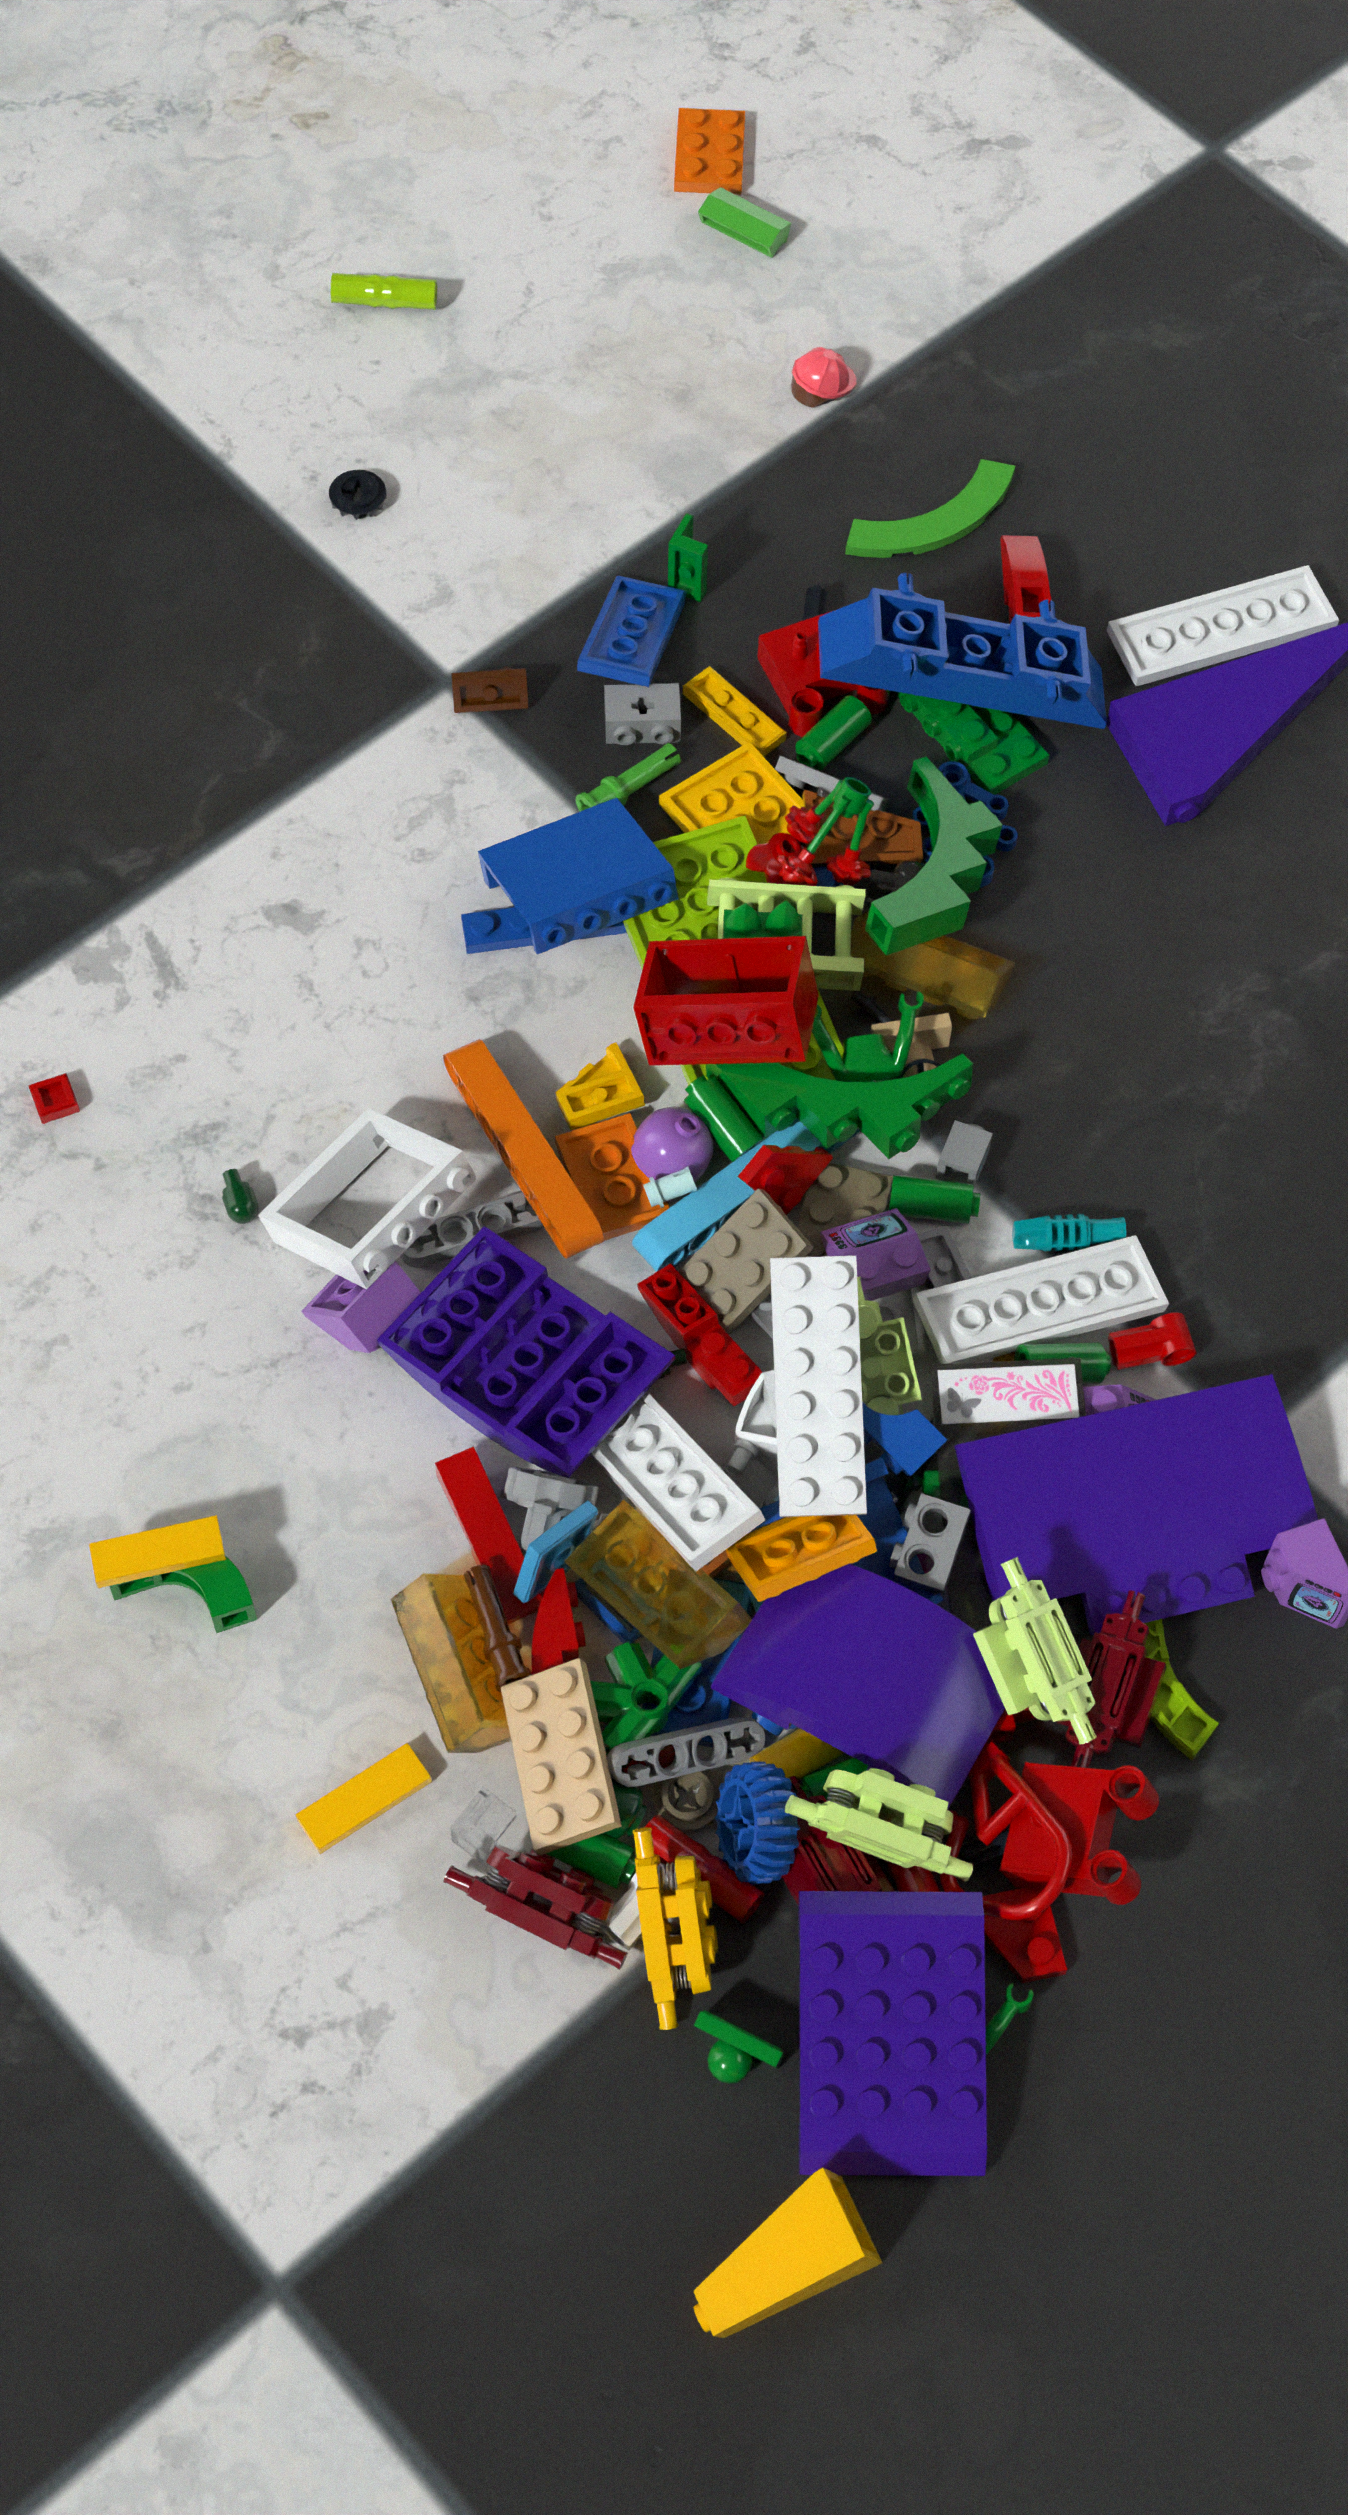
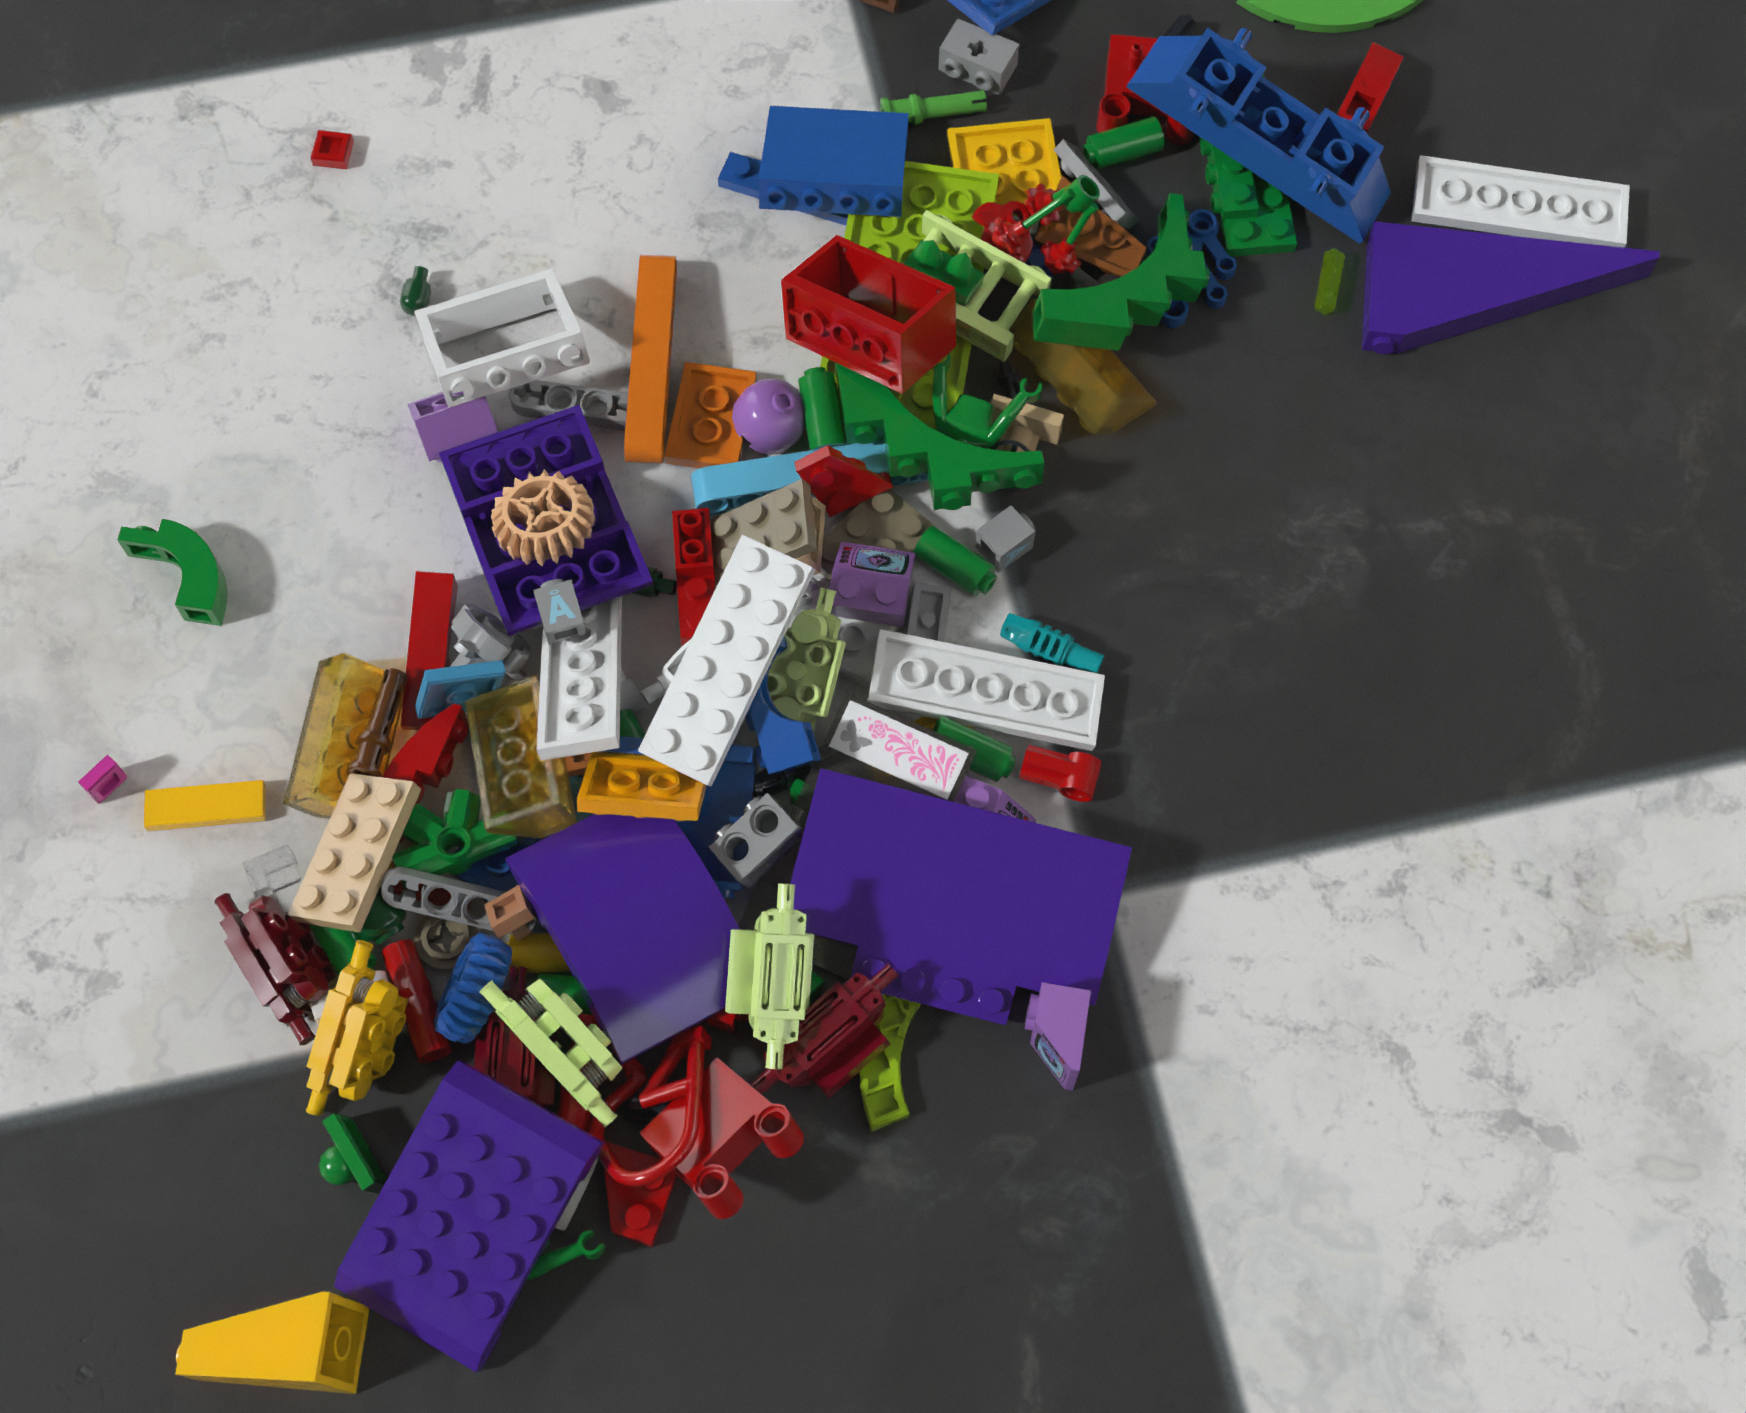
camera: 30 degrees right, 5 degrees up
(157, 1551) = (165, 532): yellow tile -> none
(247, 1825) = (103, 779): none -> dark pink tile
(558, 1347) = (548, 527): none -> light nougat gear
(600, 1091) = (745, 343): yellow wing -> none
(611, 1425) = (559, 610): none -> light grey brick
(669, 1187) = (742, 445): light aqua pin -> none
(733, 711) = (1057, 90): yellow tile -> none
(747, 1733) = (510, 914): none -> nougat tile
(1099, 776) = (1329, 281): none -> clear neon green axle

